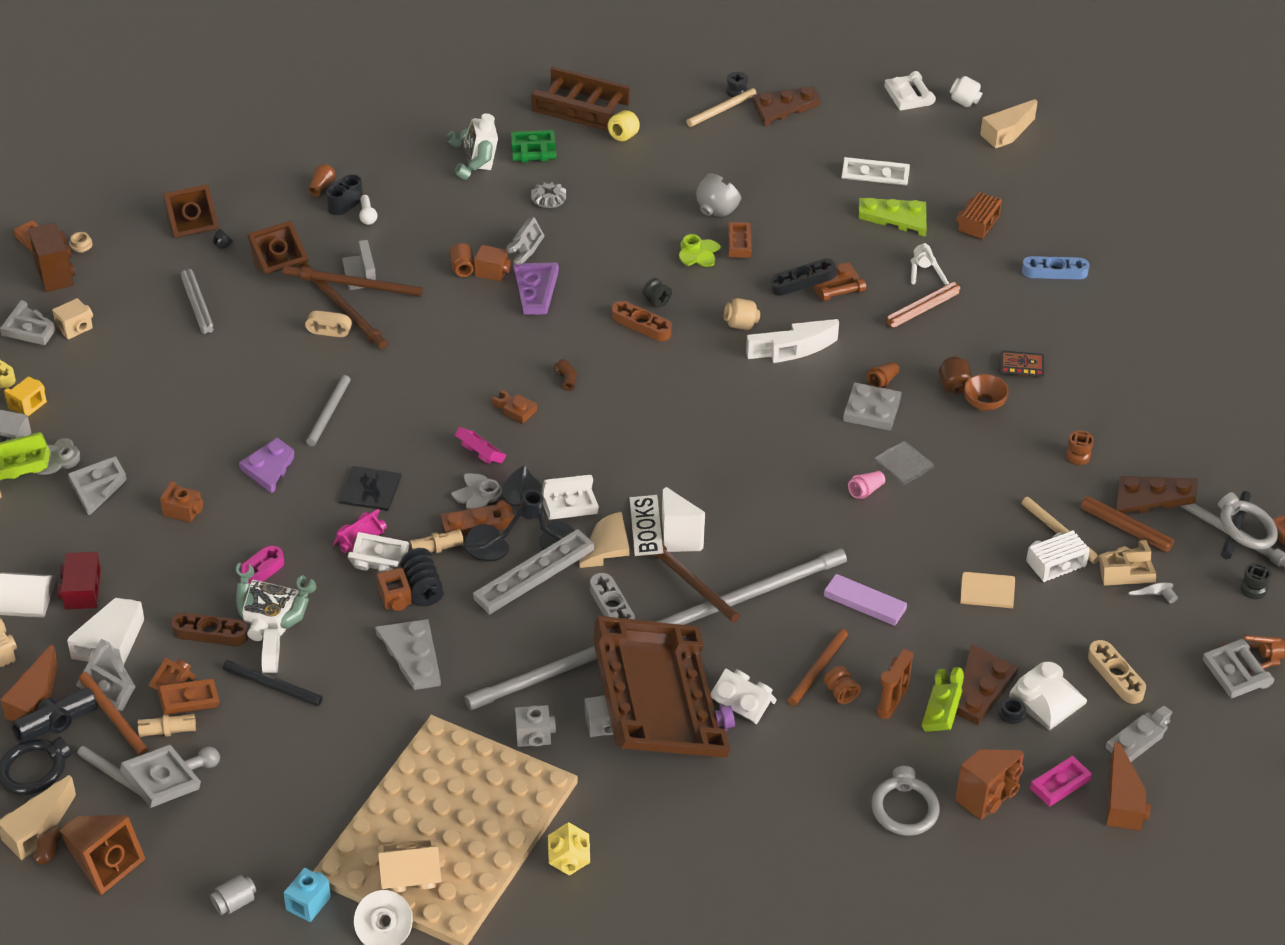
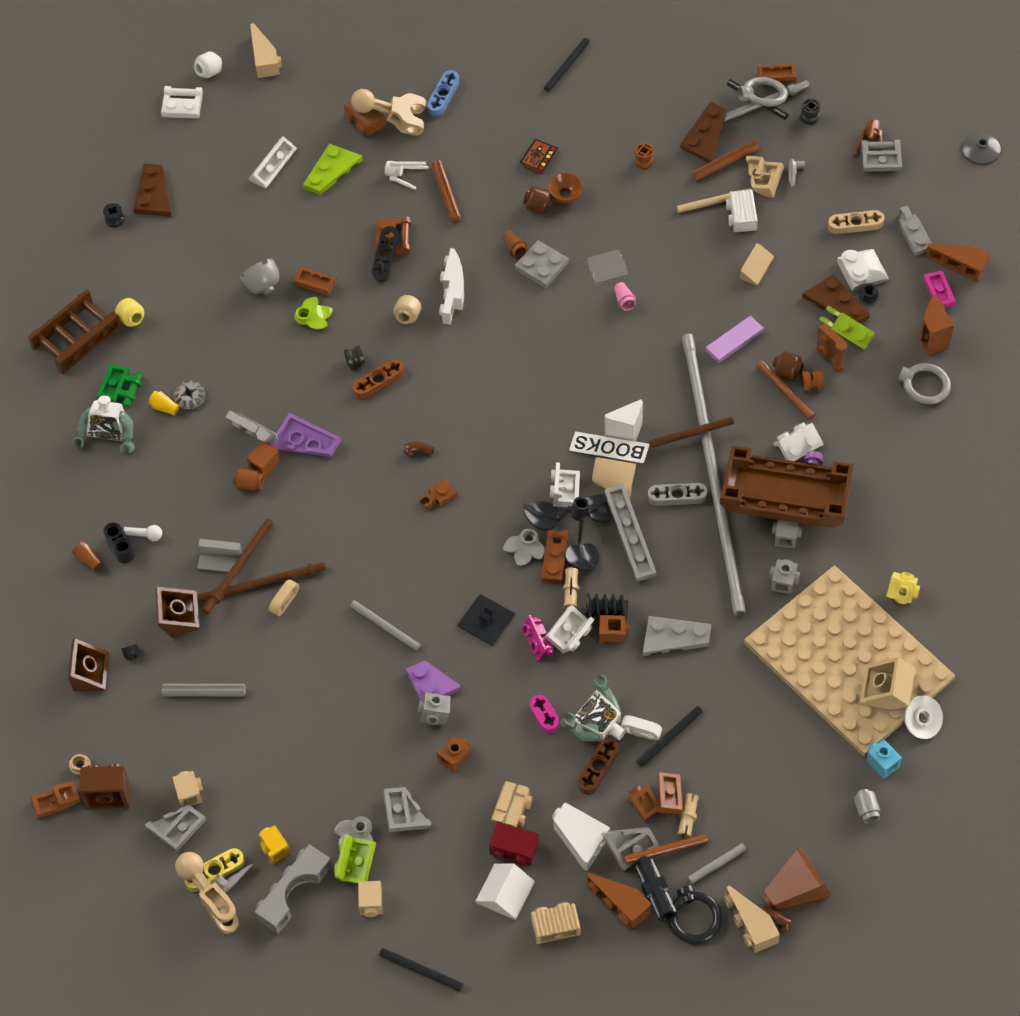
camera: 65 degrees left, 15 degrees up
(126, 565) = (511, 805): none -> tan brick
(164, 774) = (742, 826): light grey plate -> none
(229, 469) = (434, 709): none -> light grey brick
(486, 450) = (484, 527): dark pink plate -> none
(527, 177) = (162, 403): none -> yellow cone
(721, 107) = (134, 237): tan bar -> none
(850, 652) = (788, 365): none -> reddish brown head
(998, 231) = (398, 111): none -> tan piece
(1169, 353) = (565, 66): none -> black bar

